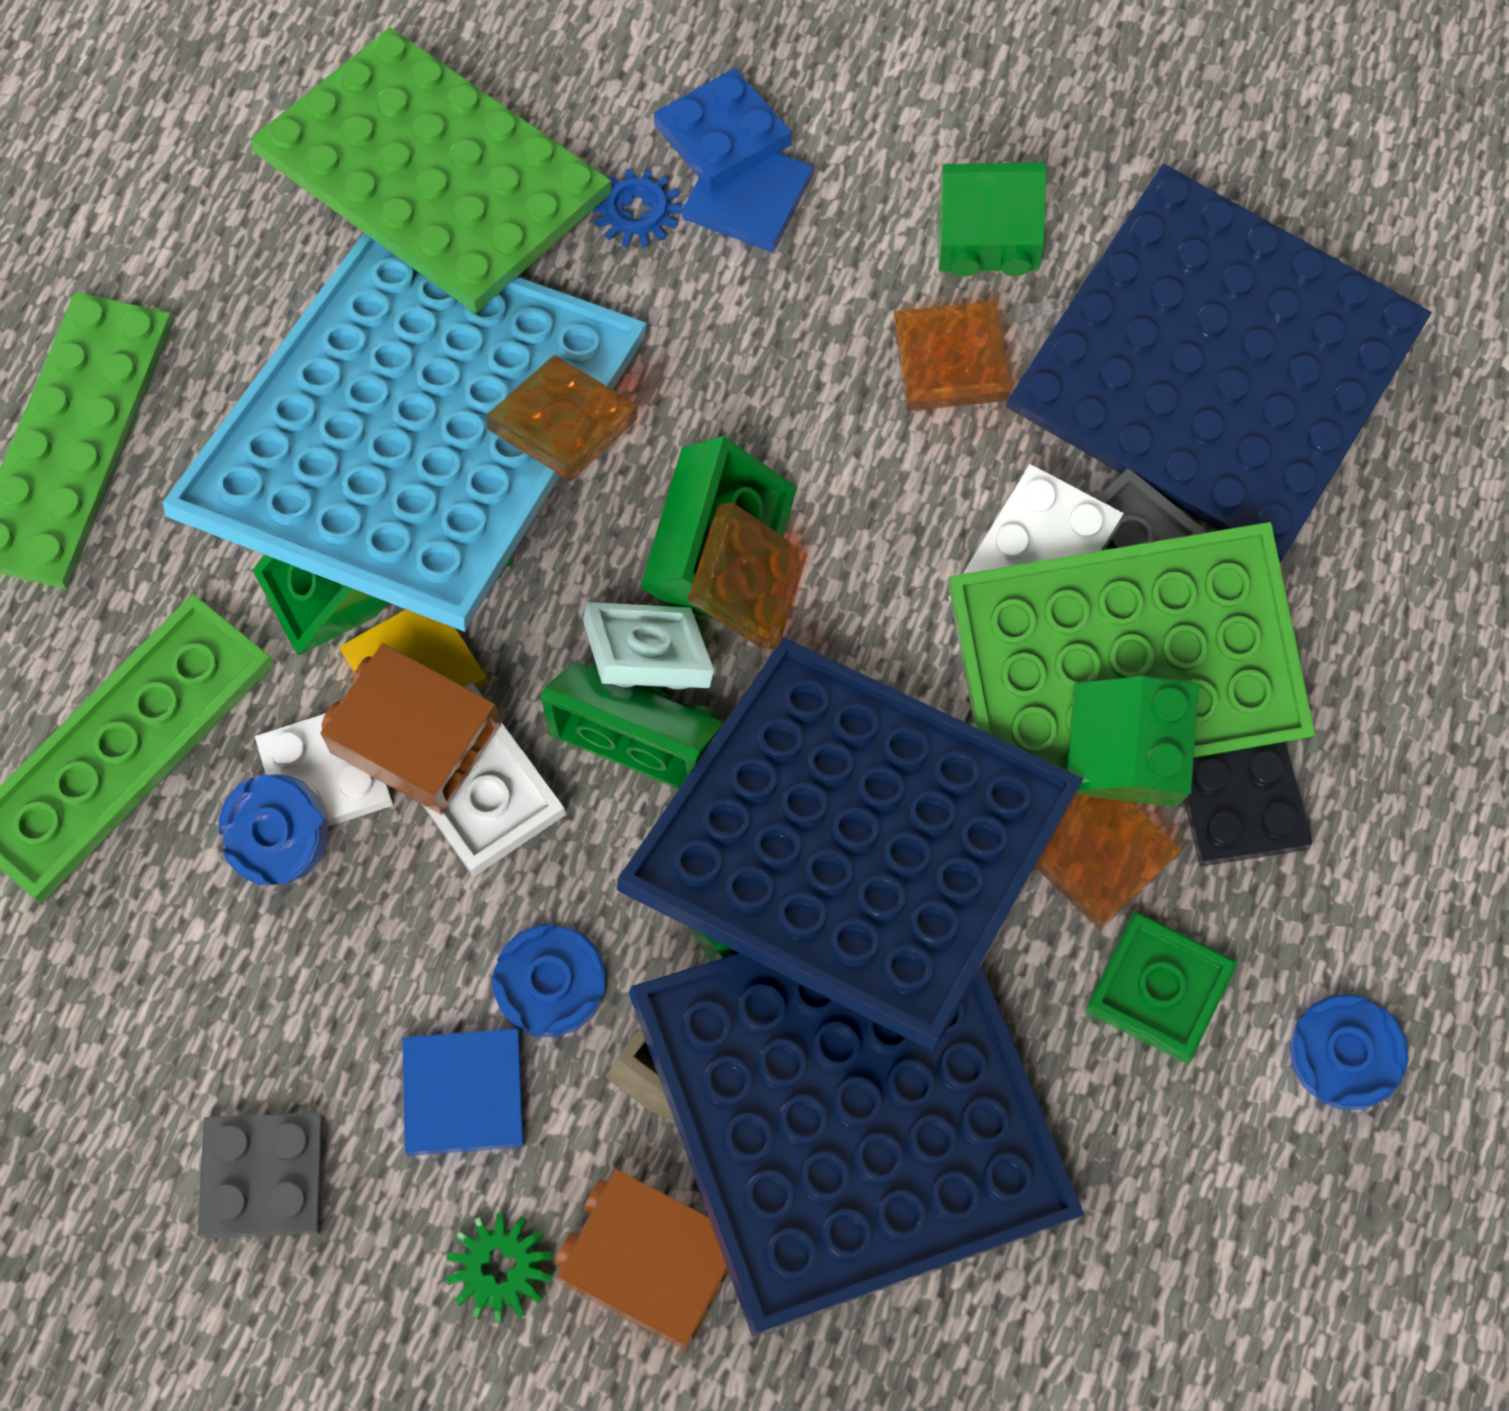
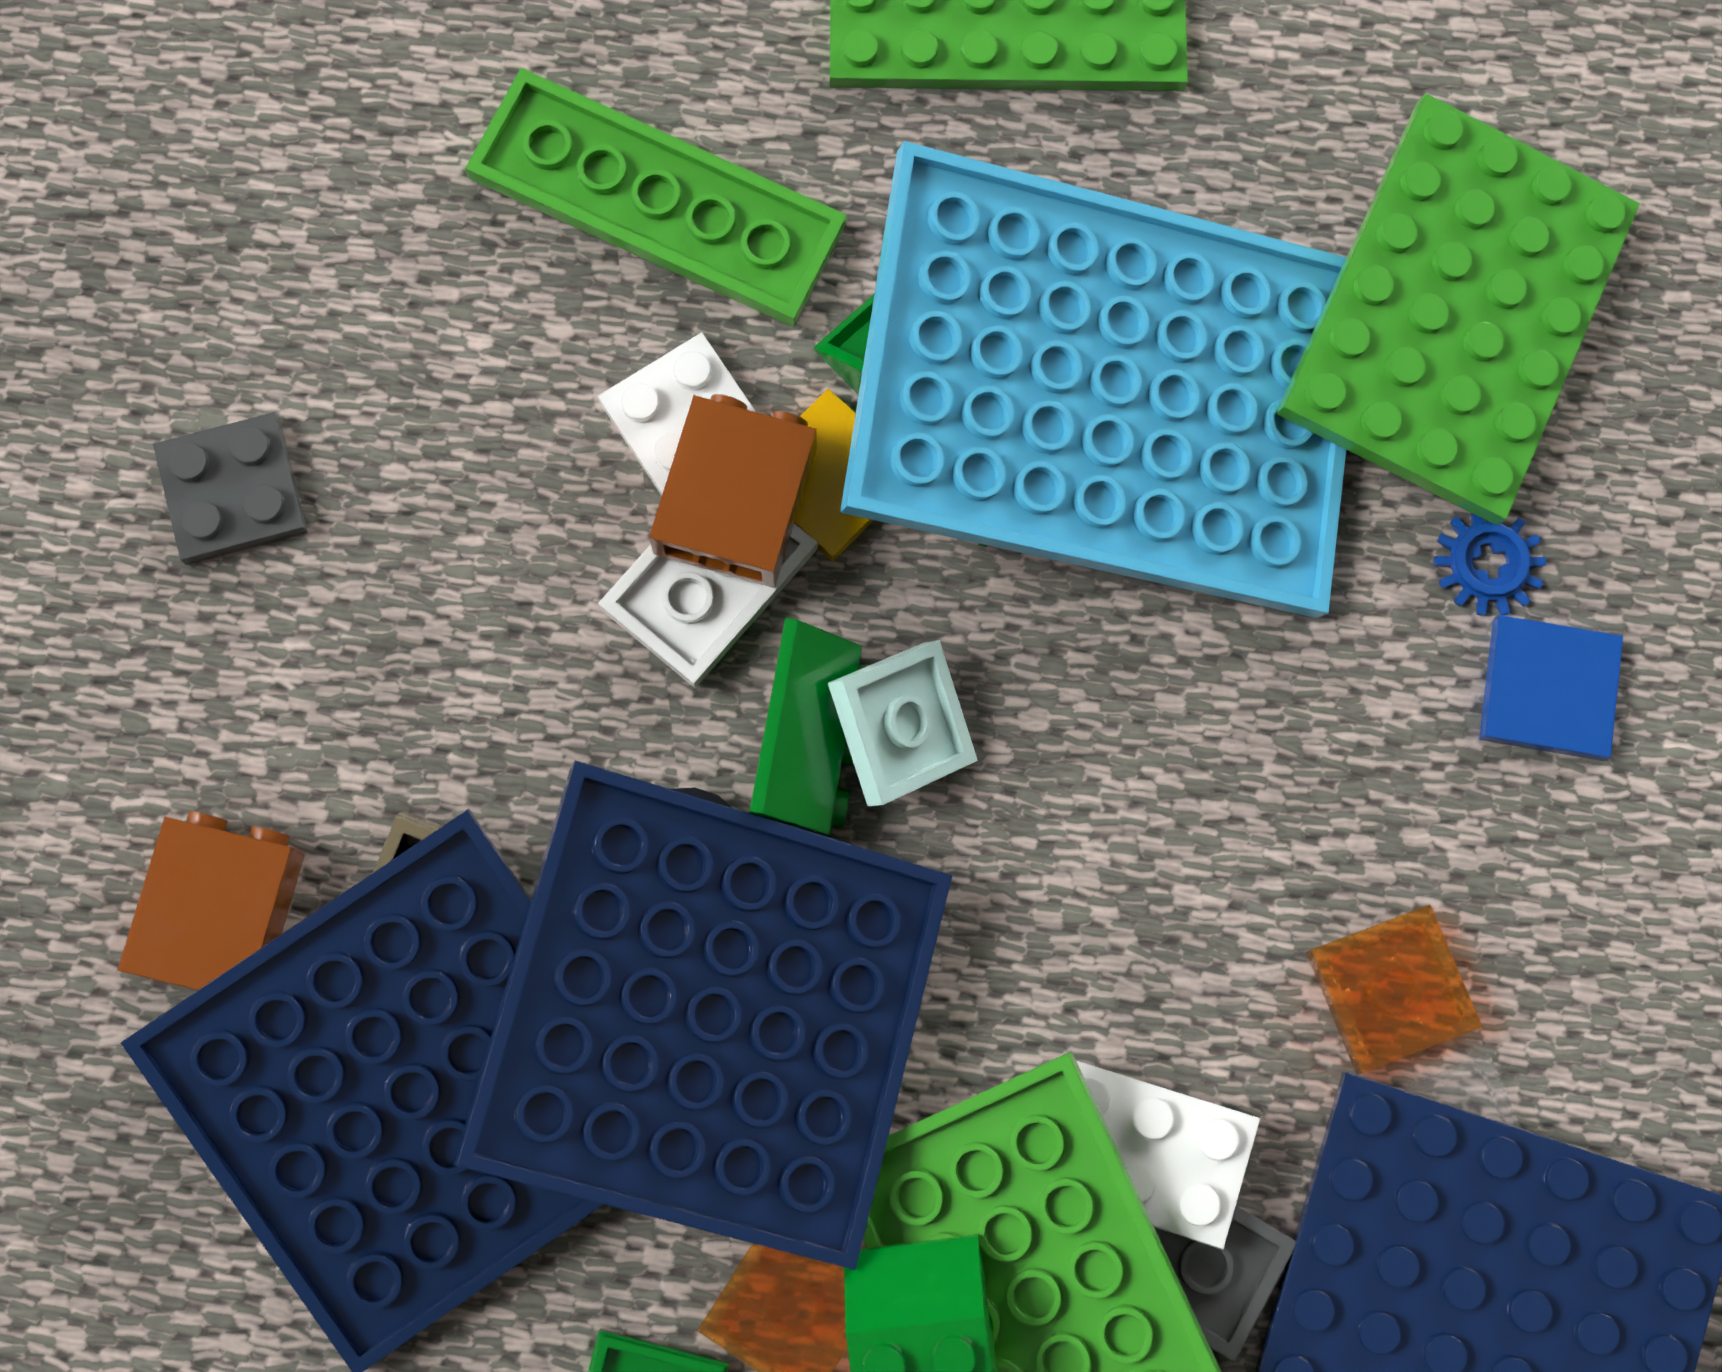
camera: 70 degrees right, 10 degrees up
(273, 829) = (597, 383): blue tile -> none
(462, 1092) = (359, 666): blue tile -> none
(520, 1279) = (207, 763): green gear -> none
(562, 417) = (1154, 548): clear orange plate -> none
(562, 995) = (517, 738): blue tile -> none
(703, 479) = (1076, 769): green slope -> none
(722, 129) = (1625, 634): blue plate -> none
(747, 576) = (1022, 814): clear orange plate -> none
(991, 218) = (1591, 996): green slope -> none

